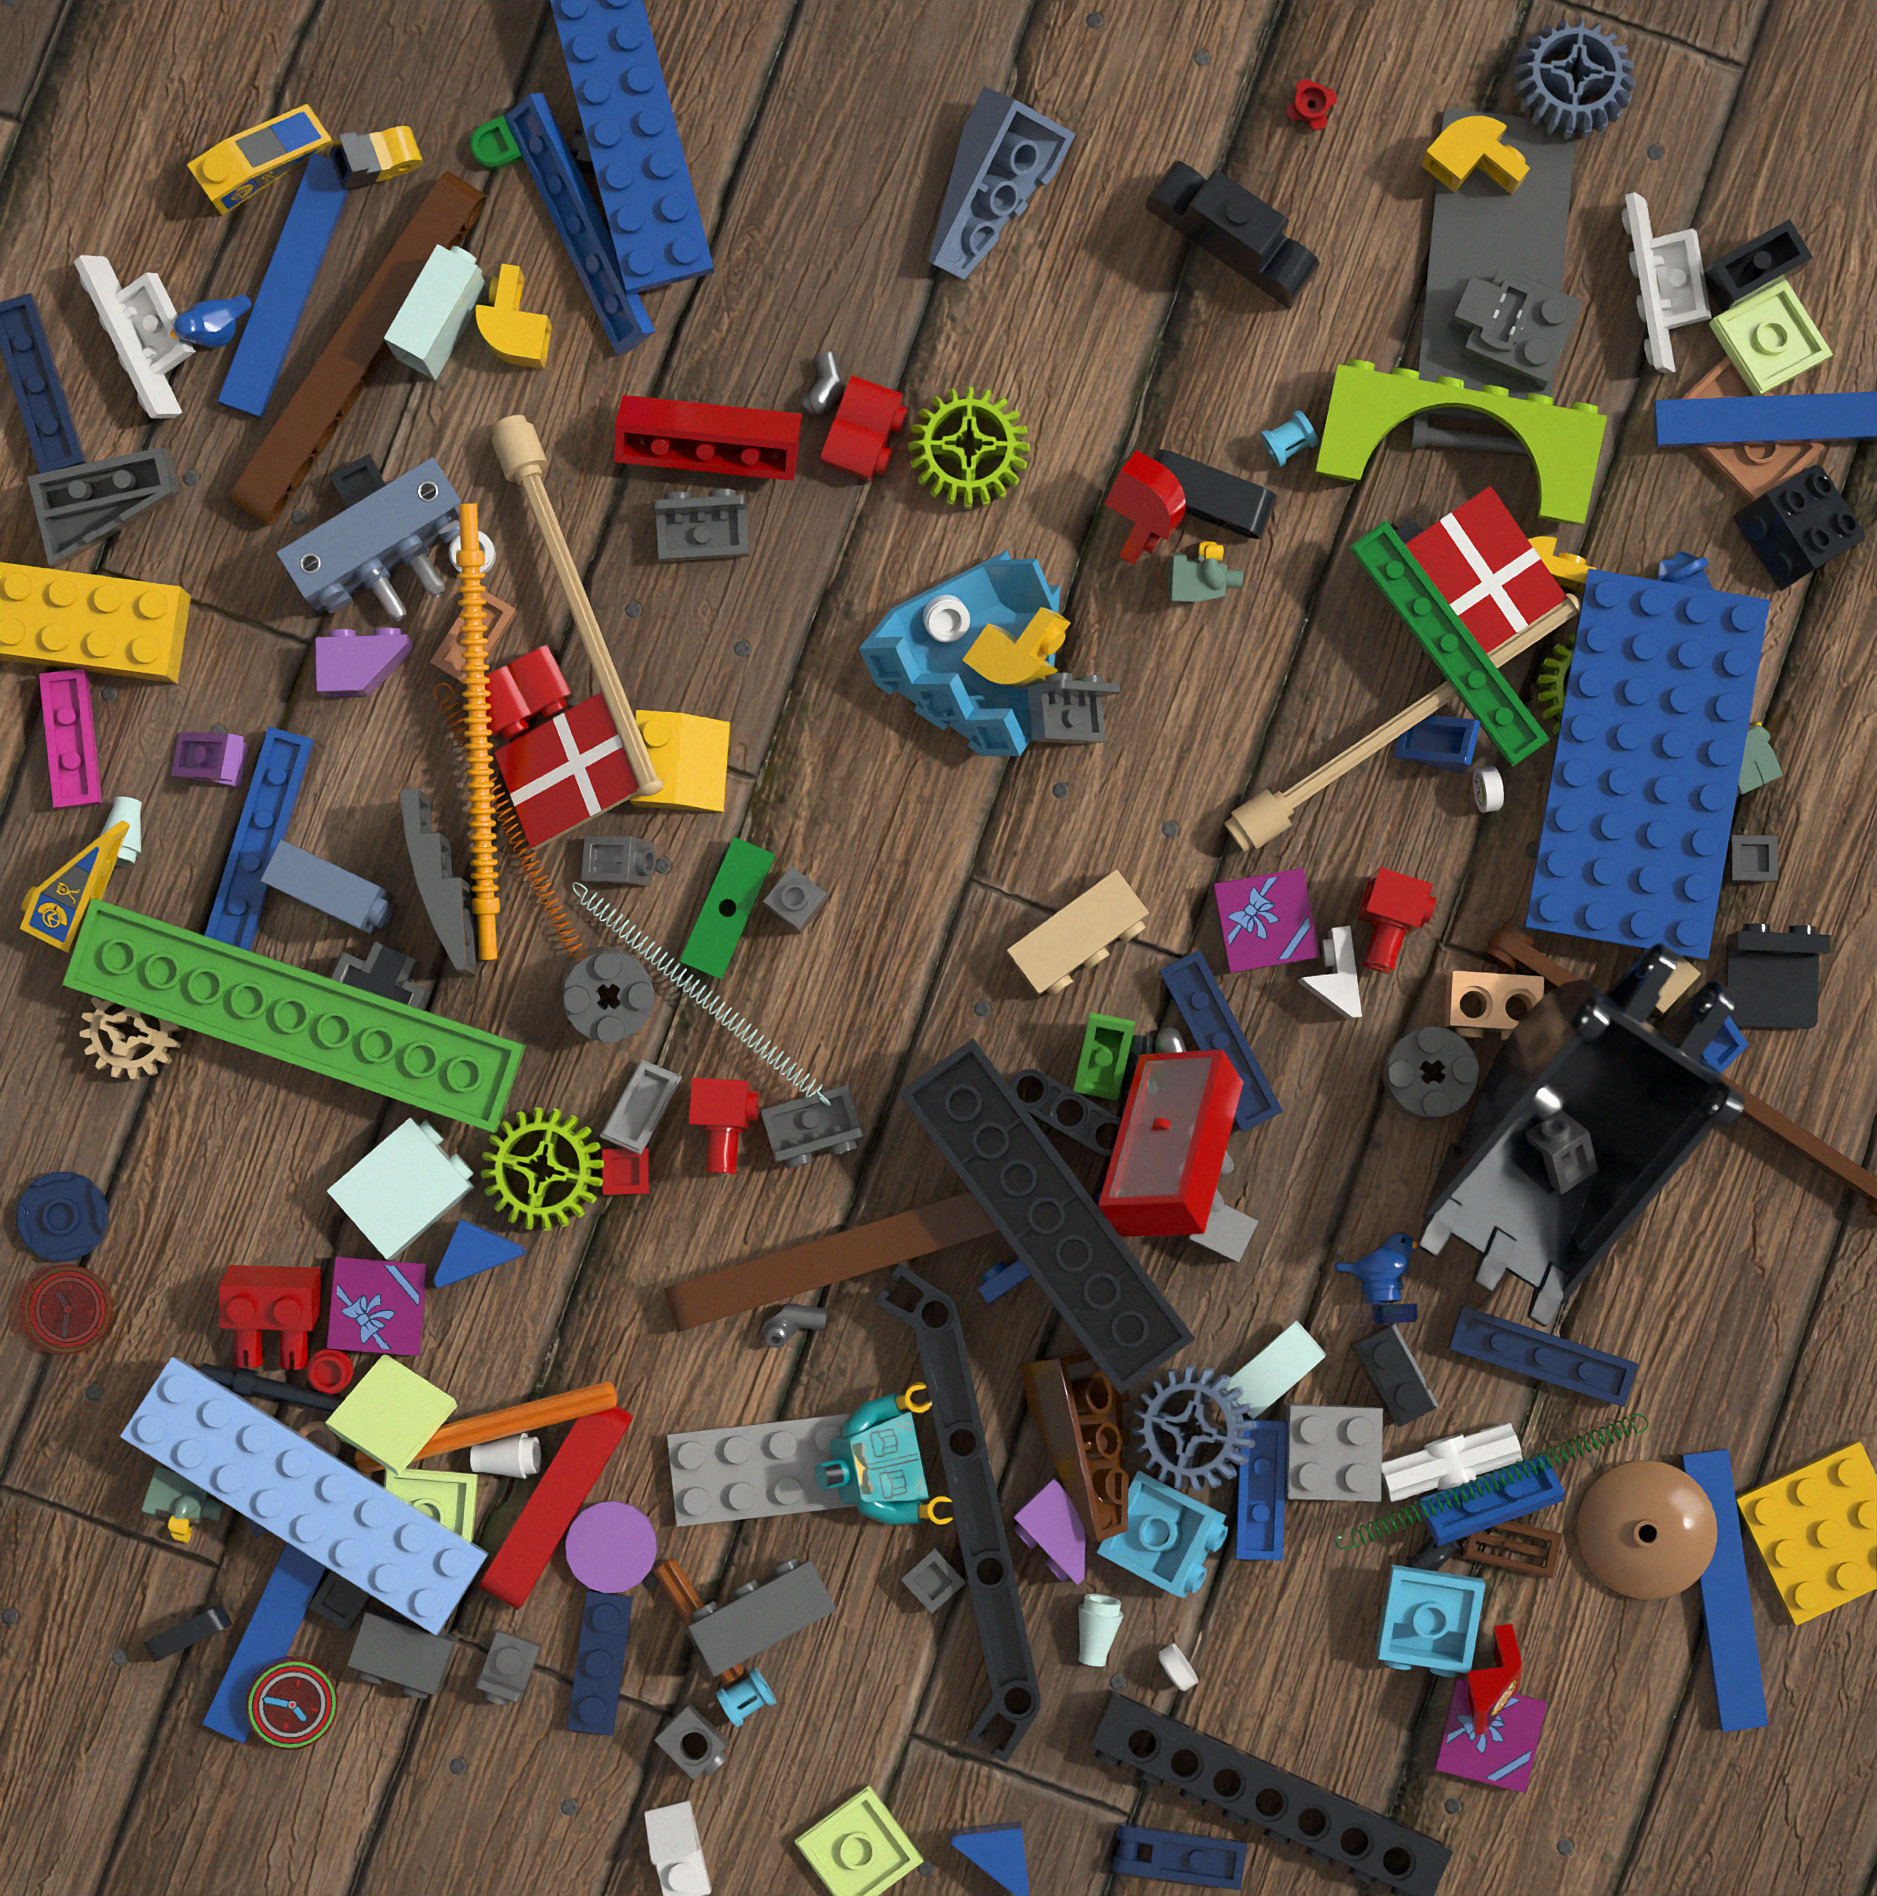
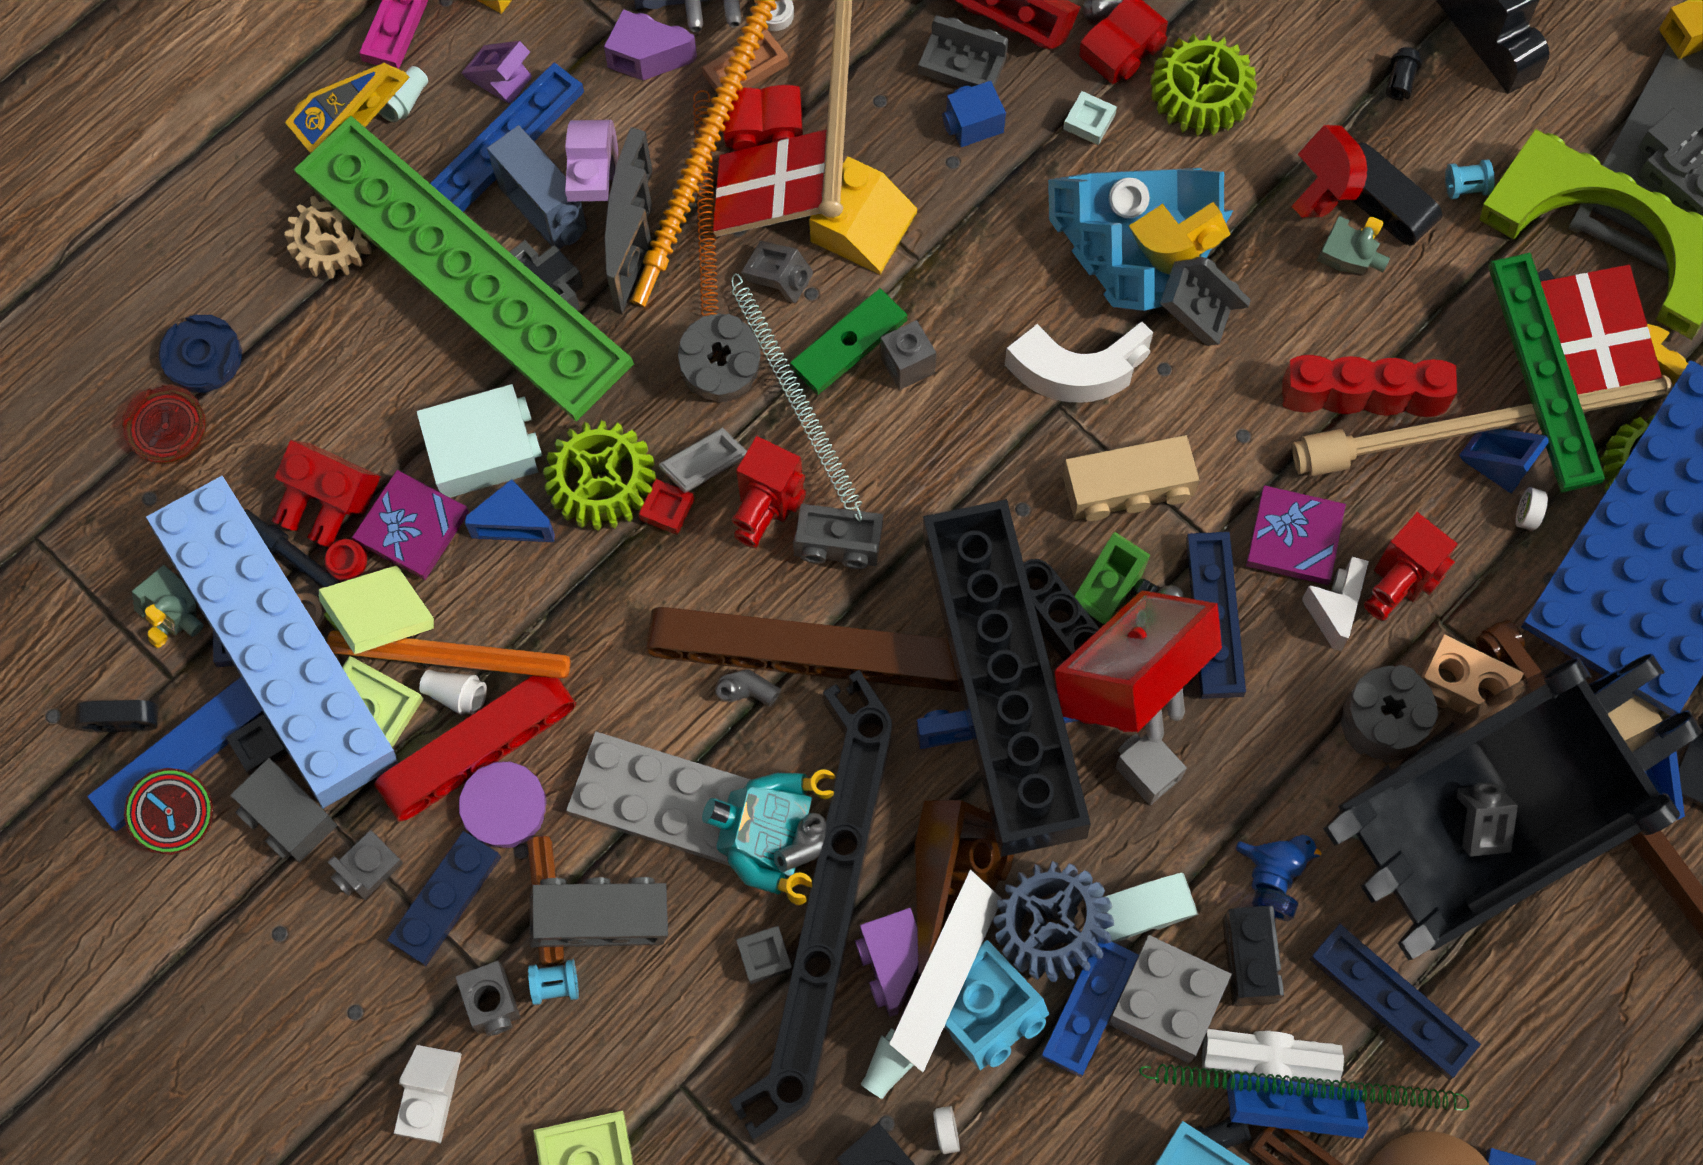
camera: 25 degrees right, 15 degrees down
(370, 840) = (590, 159): none -> lavender arch
(741, 589) = (974, 114): none -> blue brick
(865, 538) = (1090, 118): none -> light aqua plate
(928, 1465) = (806, 843): none -> flat silver arm
(972, 848) = (1076, 376): none -> white arch
(1114, 1525) = (945, 972): none -> white sticker
(1172, 339) = (1405, 65): none -> black pin
(1288, 723) = (1378, 386): none -> red brick

